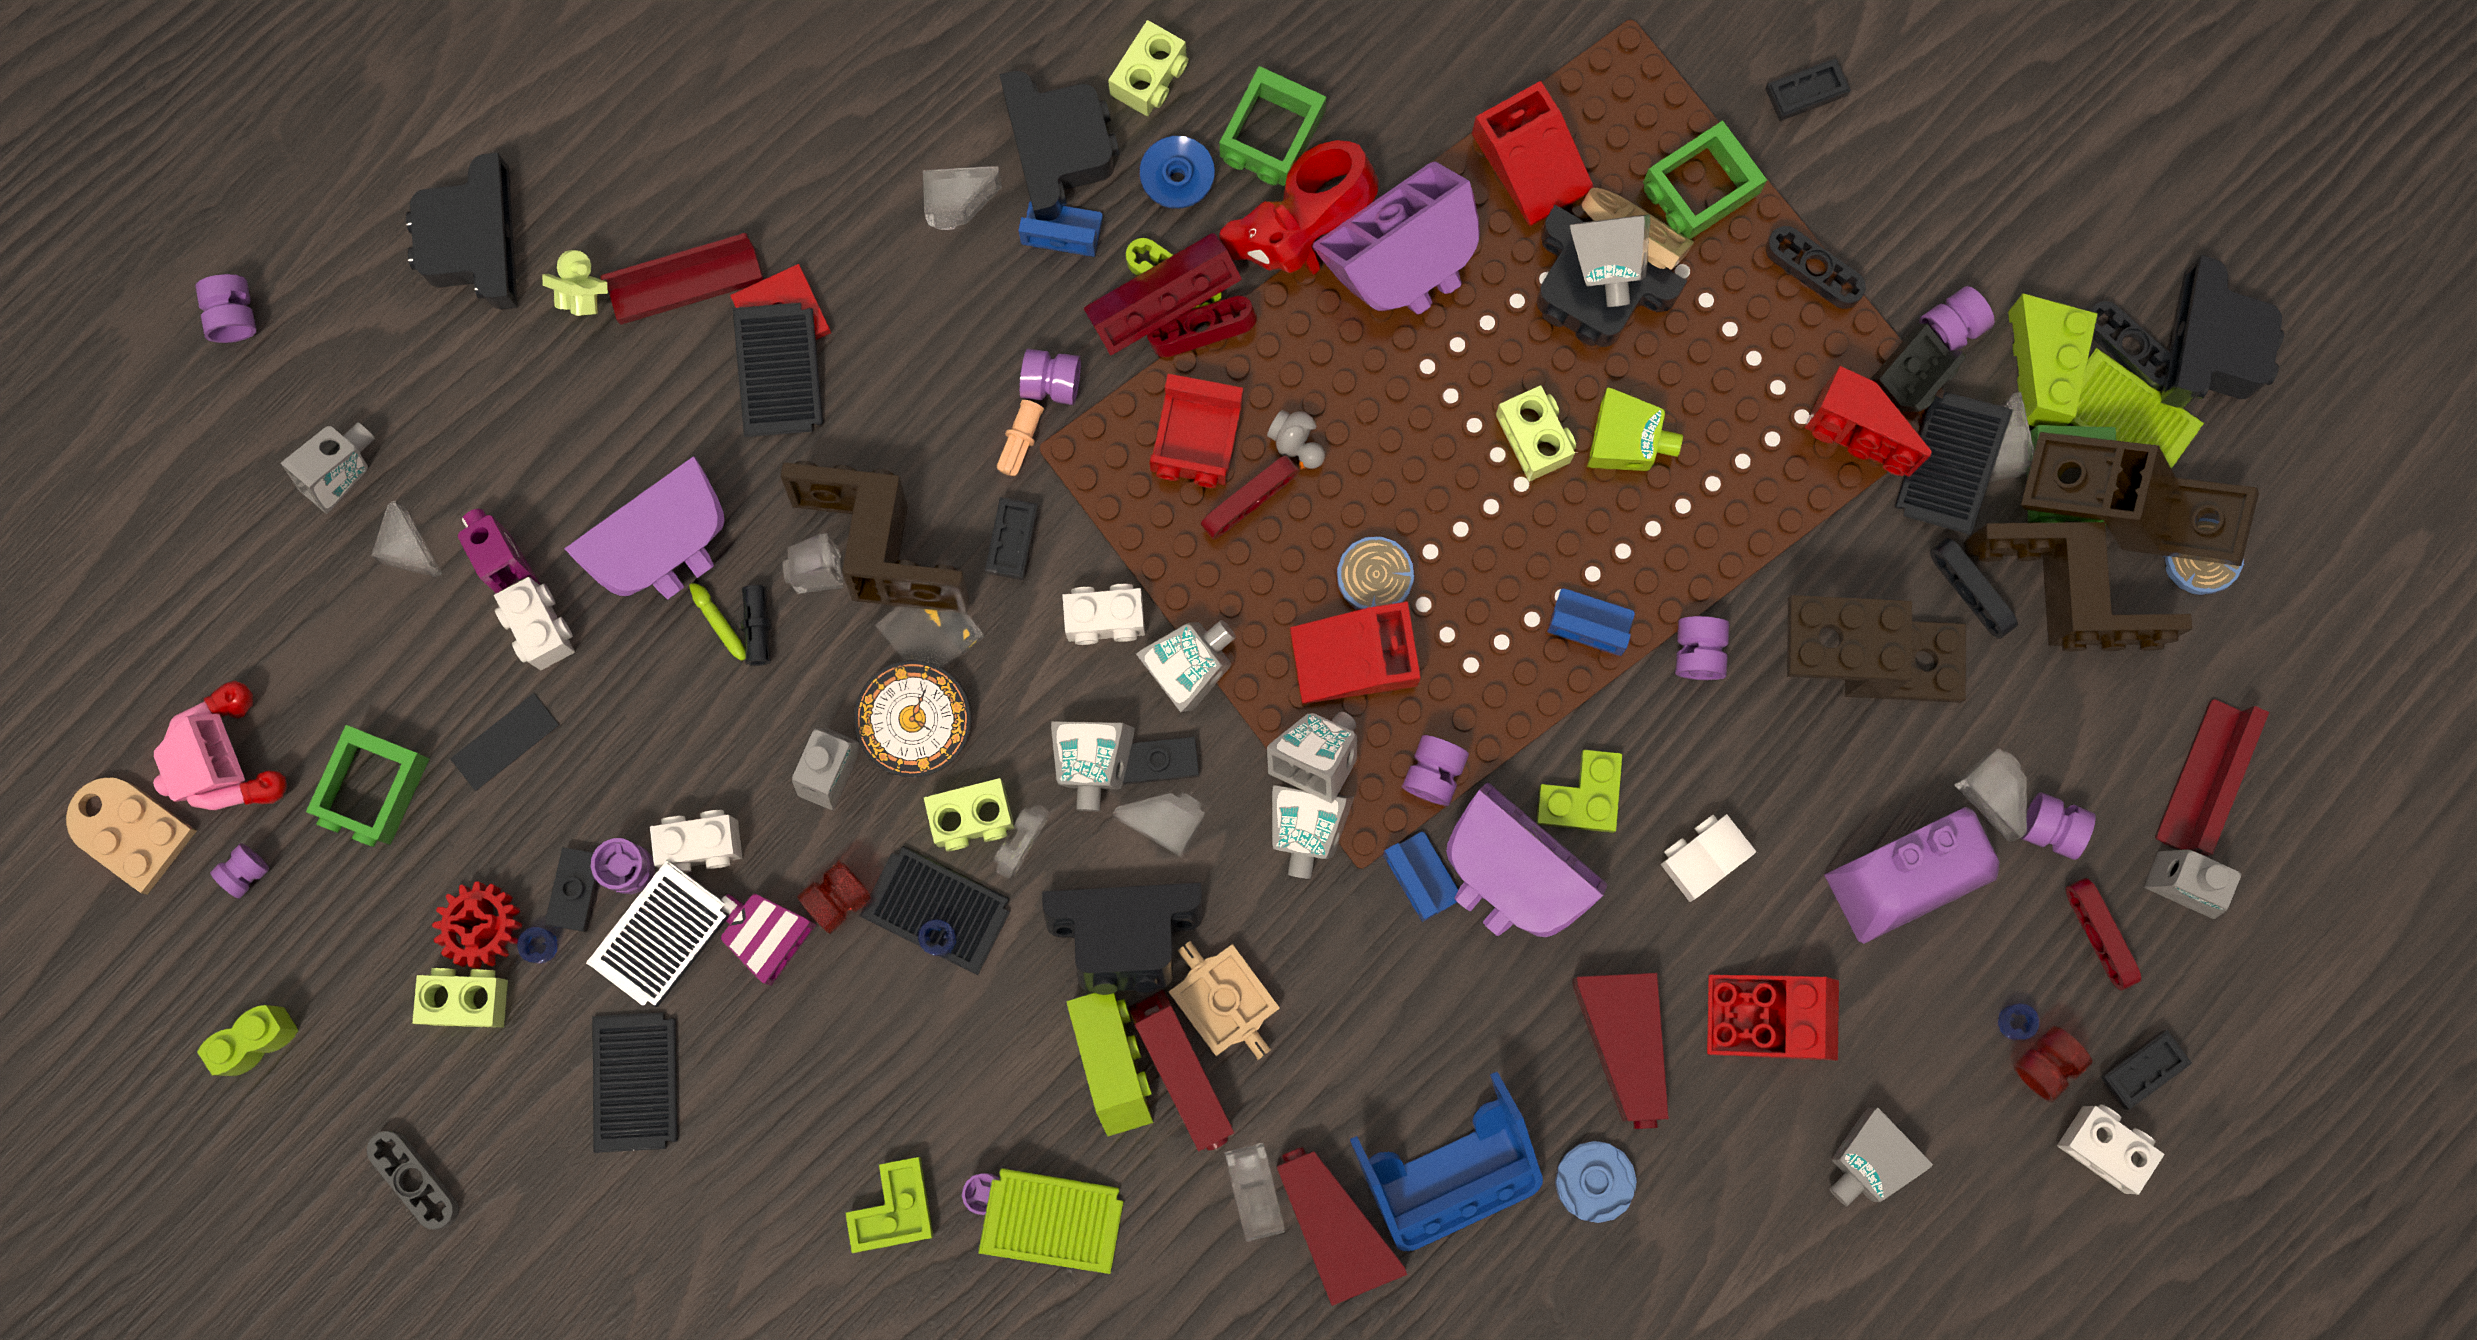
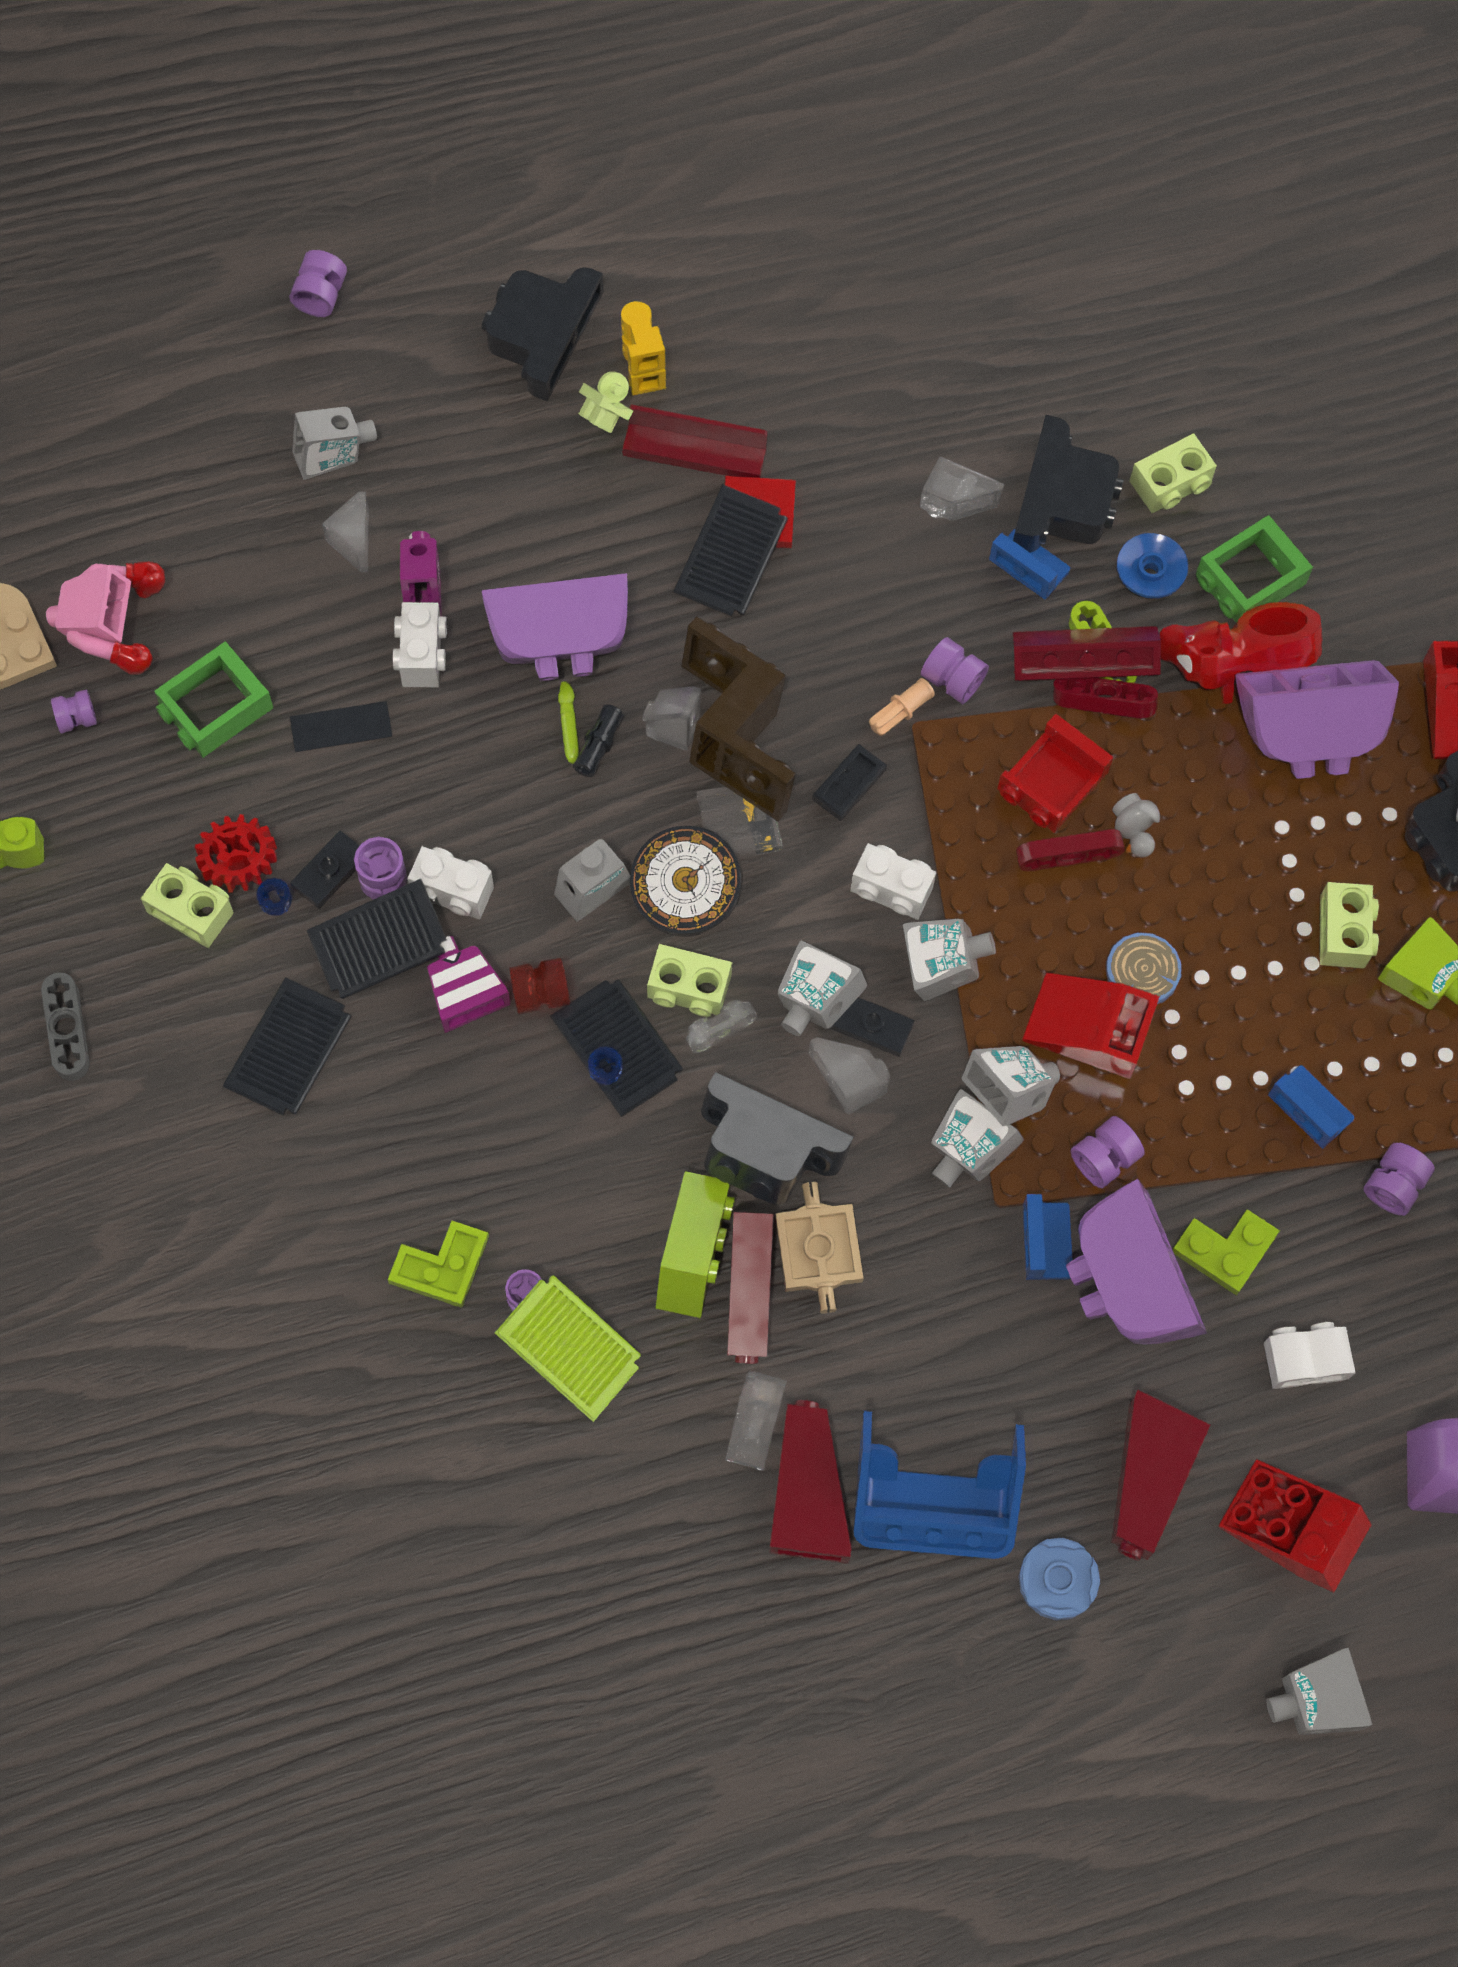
camera: 25 degrees right, 10 degrees down
(580, 211) = (642, 349): none -> yellow legs

